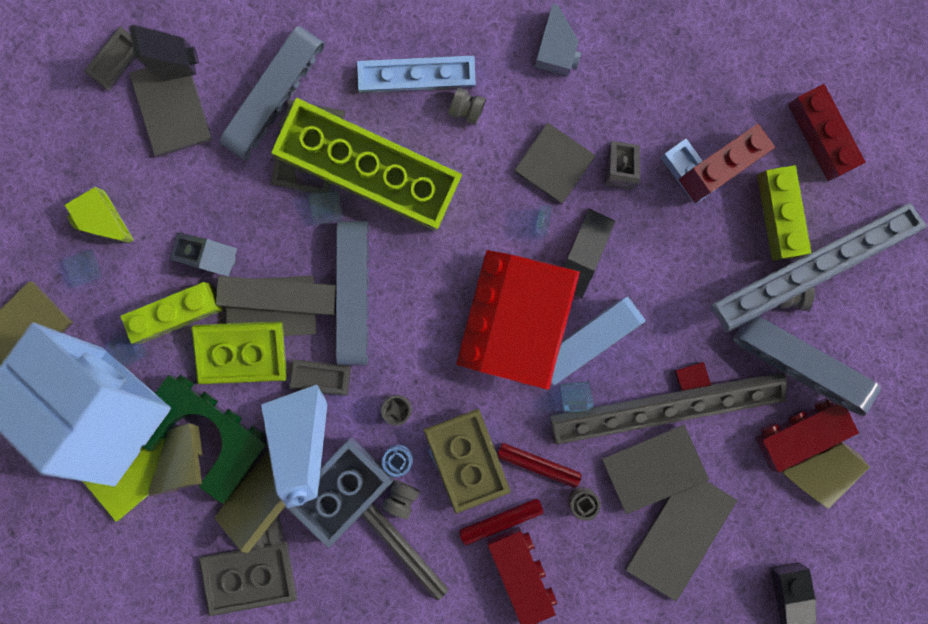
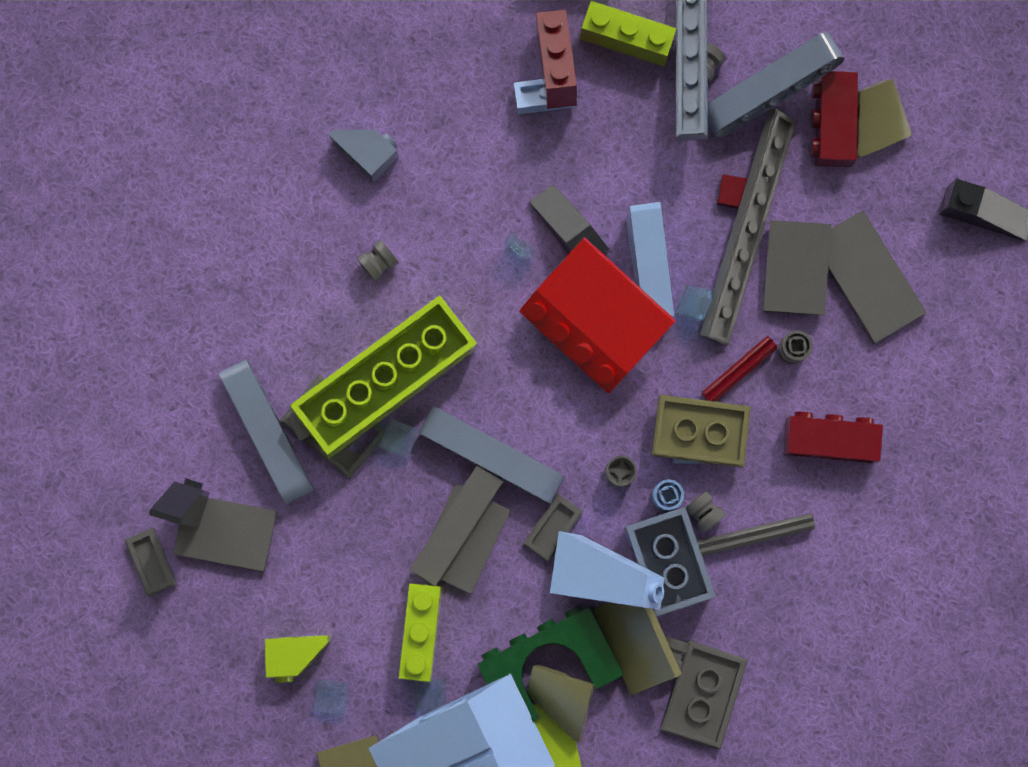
camera: 65 degrees left, 5 degrees down
(203, 254) = (380, 574): sand blue slope -> none
(239, 352) = (490, 589): lime tile -> none
(416, 74) = (322, 290): light blue plate -> none
(501, 522) = (773, 432): dark red axle -> none
(554, 163) = (472, 210): dark grey tile -> none
(623, 165) = (508, 150): dark grey slope -> none

